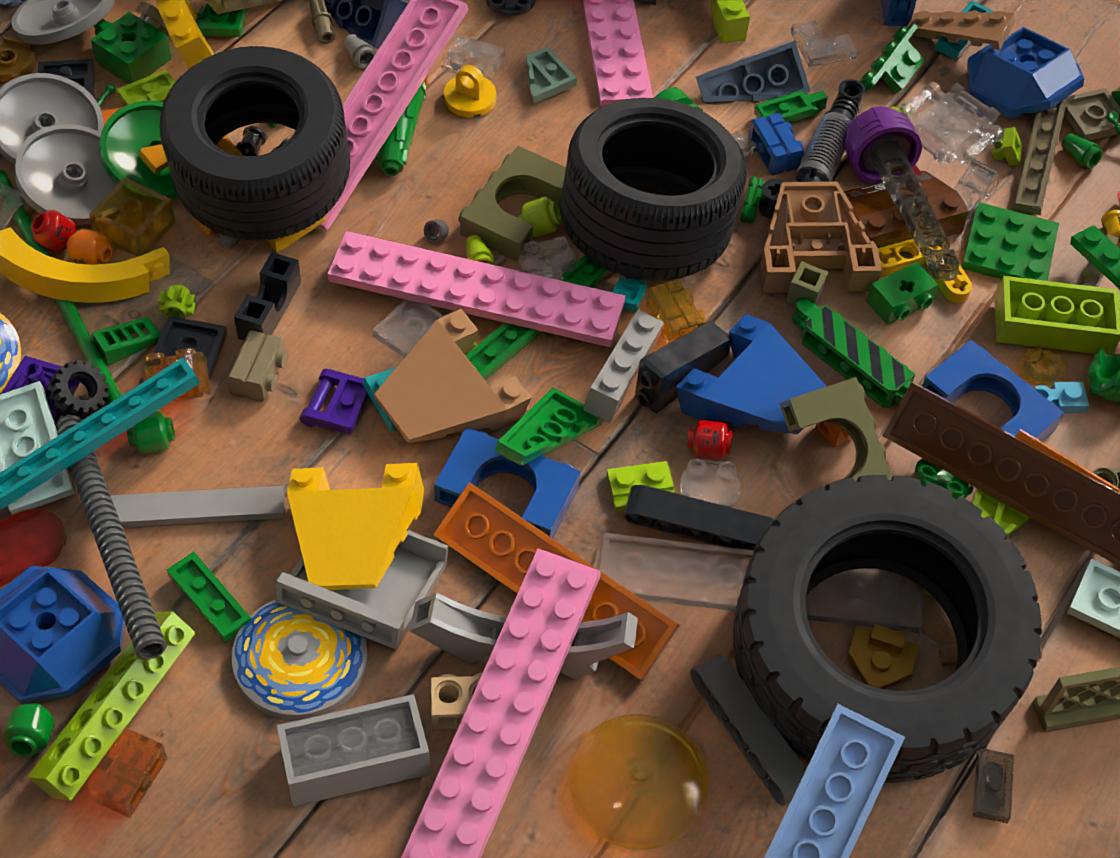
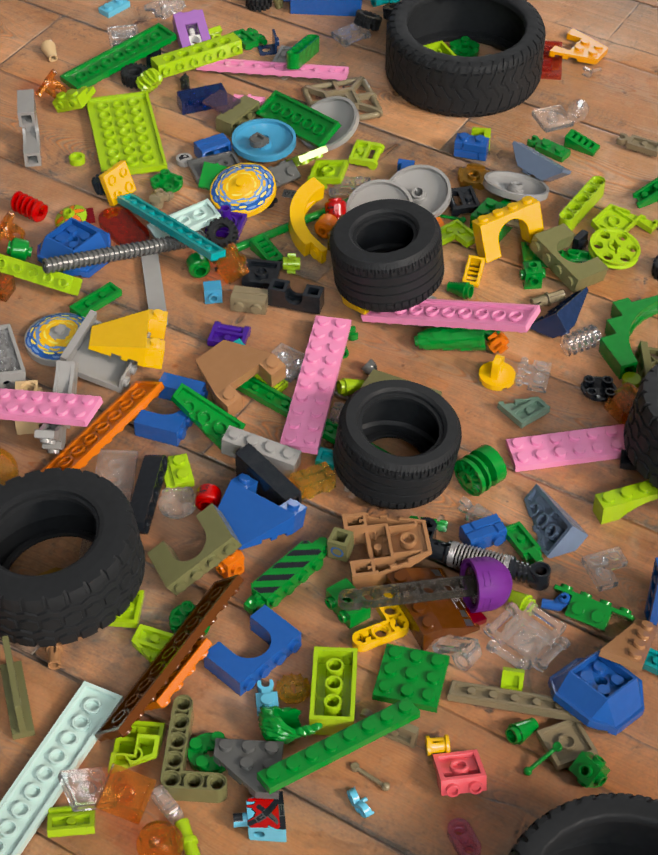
camera: 90 degrees right, 10 degrees down
(226, 416) = (212, 292): none -> dark azure plate
(271, 19) = (532, 275): none -> green brick
(885, 89) = (556, 604): none -> blue arm

